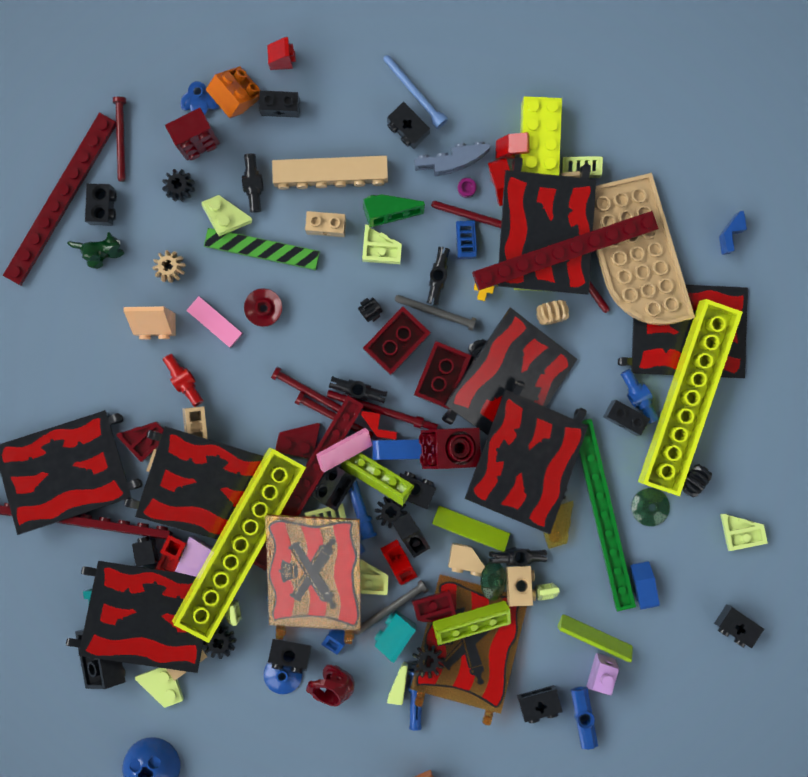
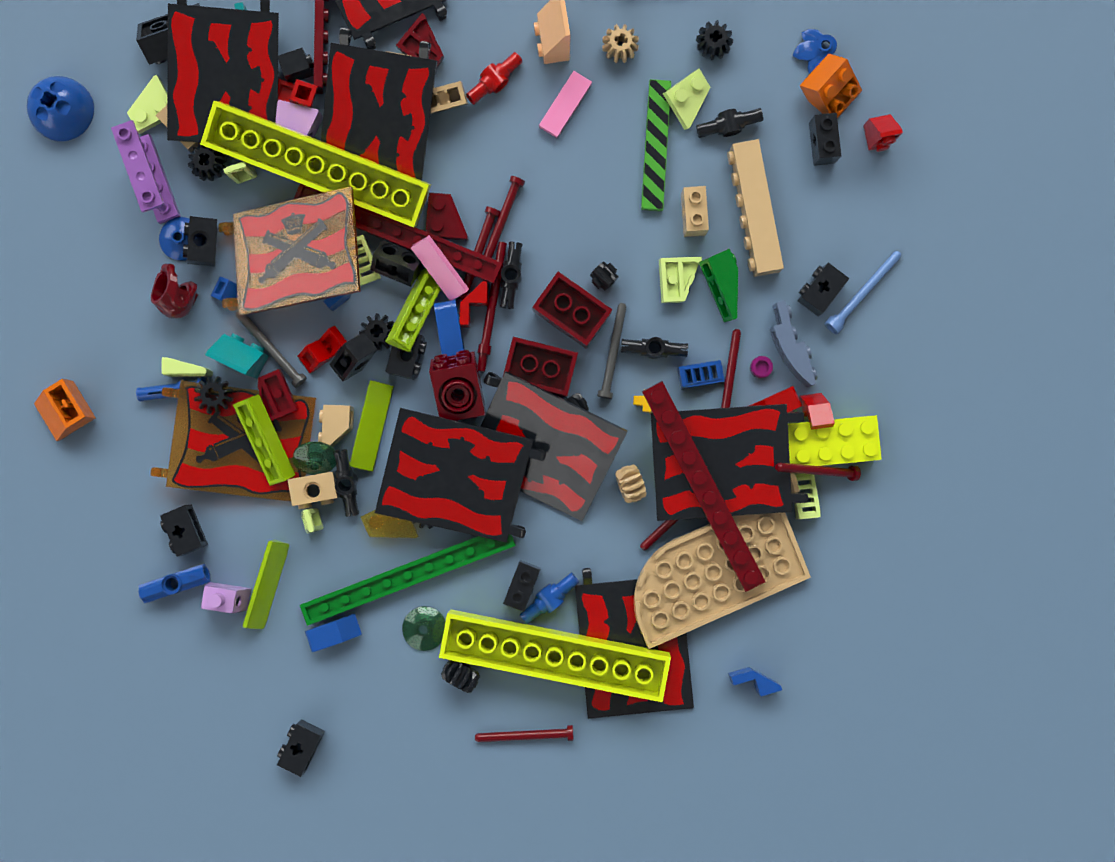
camera: 85 degrees right, 0 degrees up
(193, 134) = (773, 43): dark red brick -> none
(223, 696) = (145, 172): none -> medium lavender fence
(253, 305) = (593, 145): dark red dish -> none
(365, 521) = (365, 302): blue pin -> none
(373, 580) = (299, 320): yellowish green wing -> none
(567, 124) = (852, 472): none -> dark red bar
(742, 533) = (408, 738): yellowish green wing -> none
(752, 432) = (526, 735): none -> dark red bar

